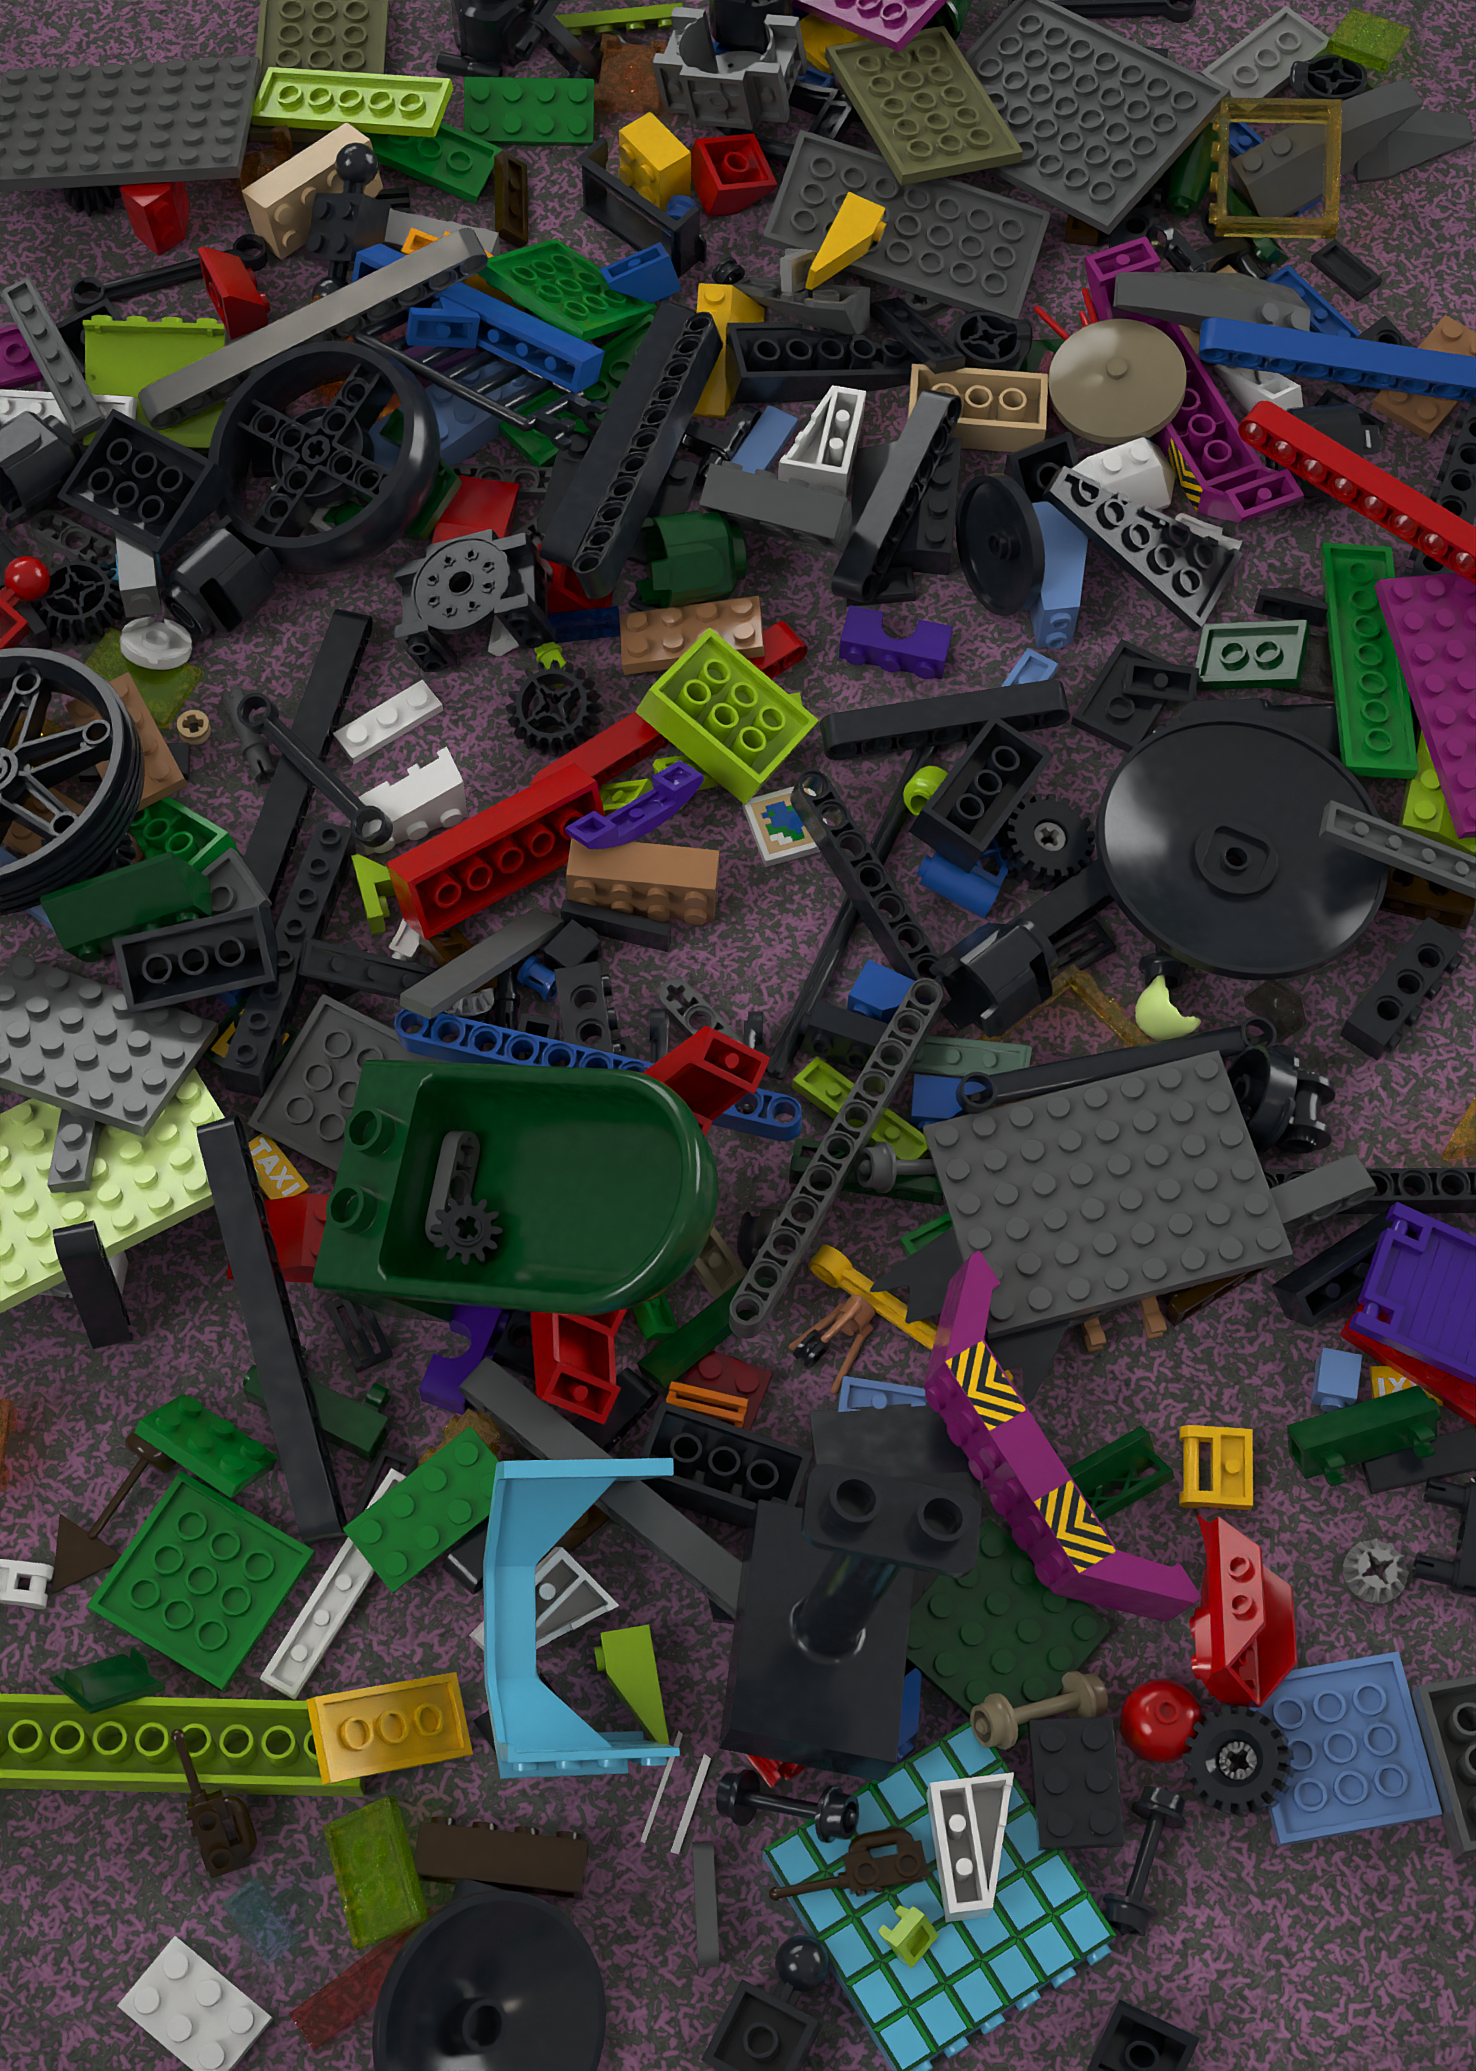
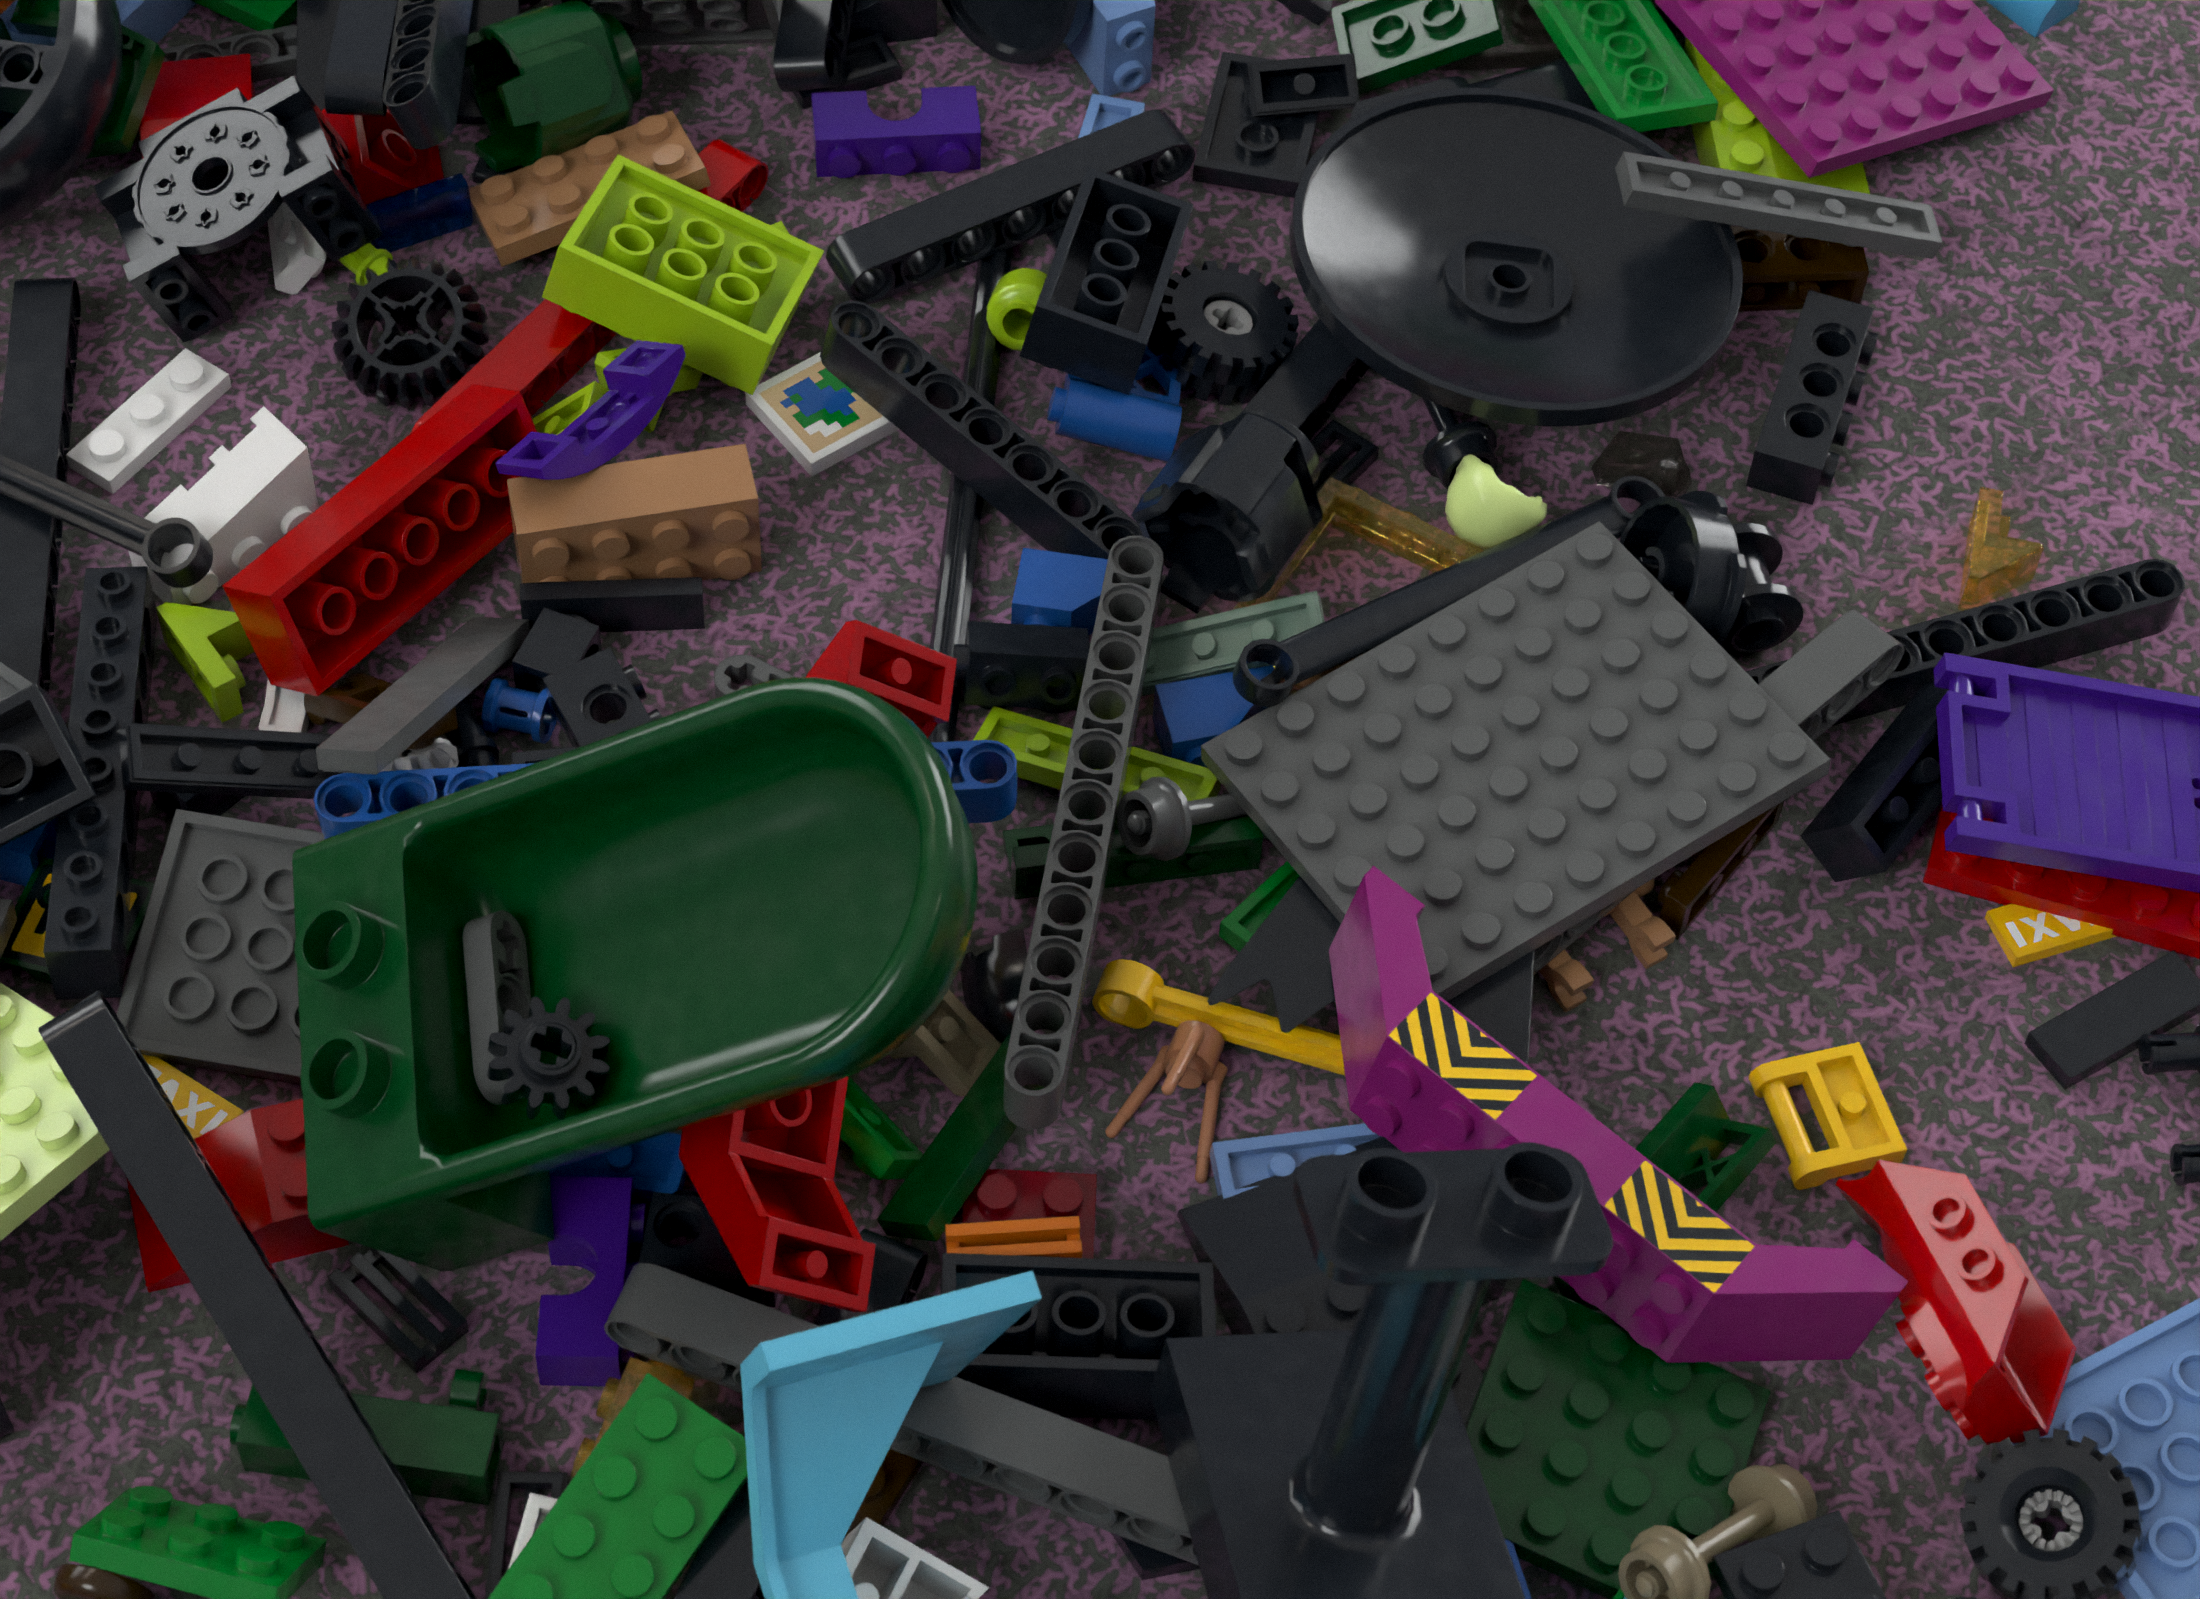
camera: 20 degrees left, 10 degrees down
(811, 1349) = (1145, 1121): black bush -> none
(1159, 1720) = (1904, 1505): red cylinder -> none
(1336, 1379) = (1949, 939): medium blue brick -> none
(1363, 1433) = (2023, 1000): dark green brick -> none
(1371, 1587) = (2133, 1216): light grey gear -> none

